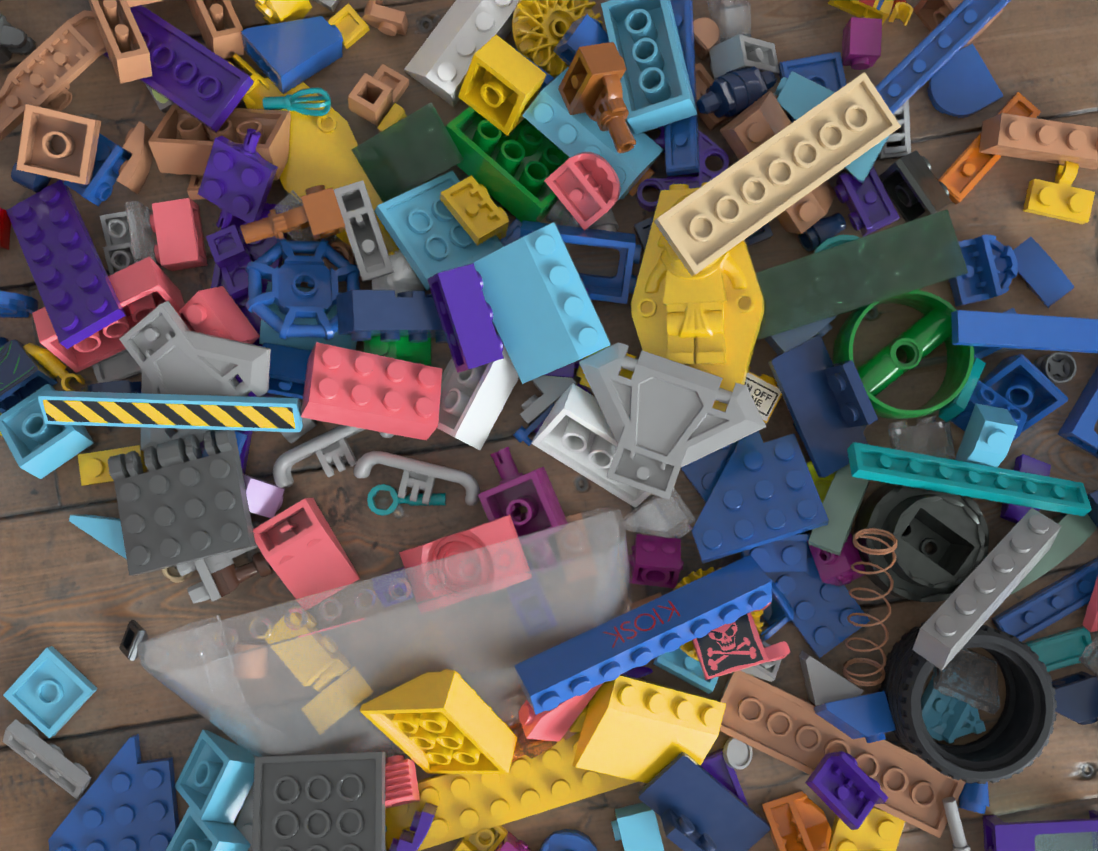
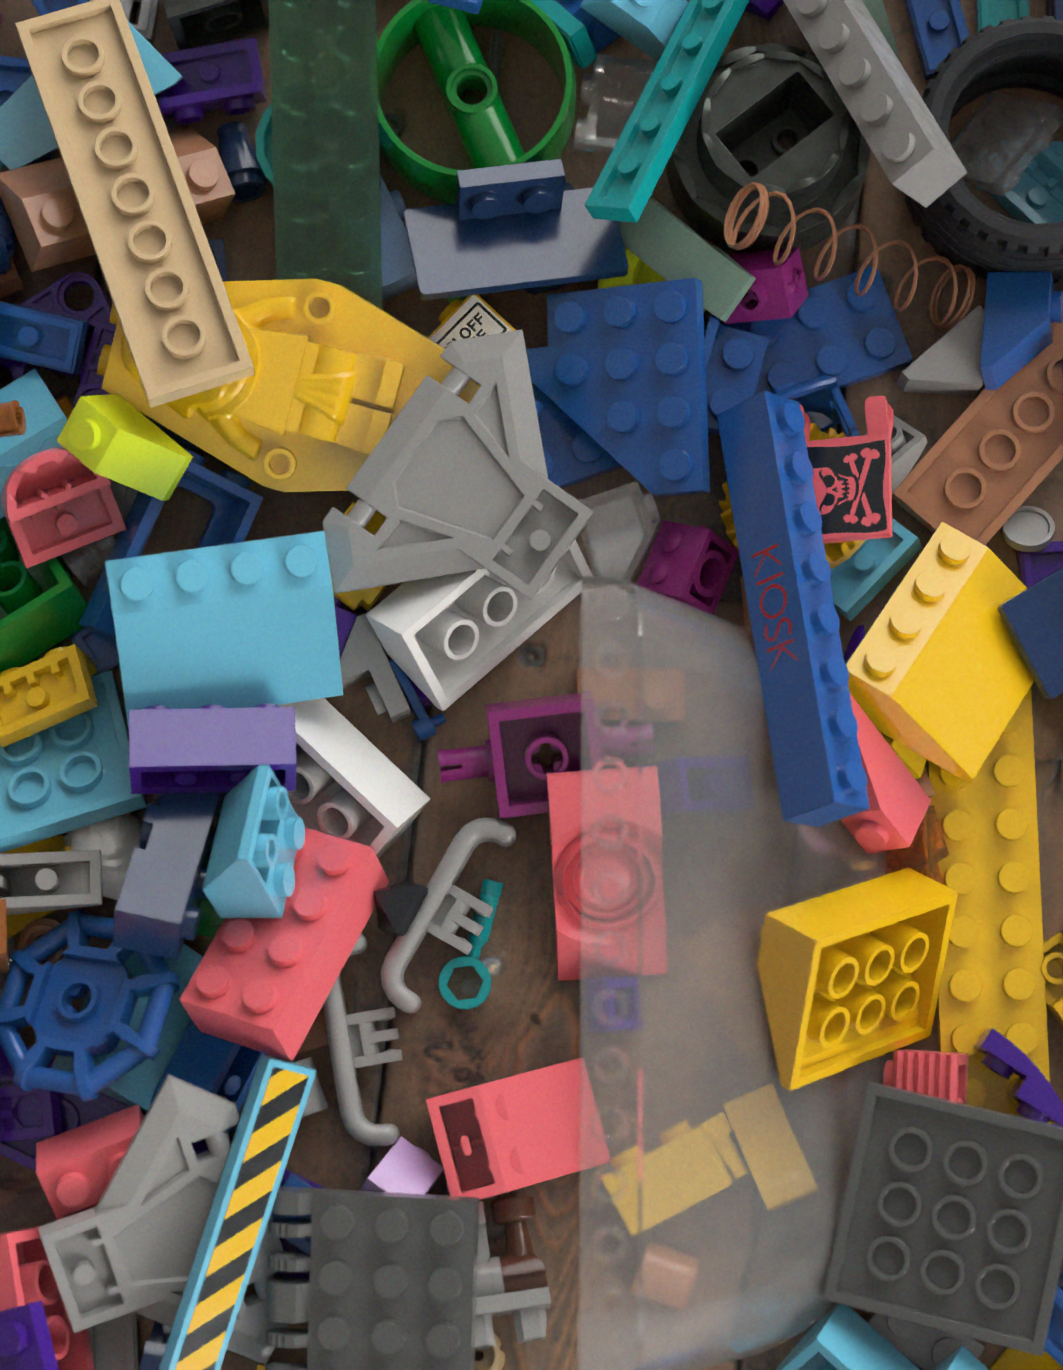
camera: 70 degrees left, 5 degrees down
(412, 451) = (398, 906): none -> black slope
(414, 359) = (254, 849): none -> medium azure slope
(629, 213) = (124, 445): none -> neon yellow slope

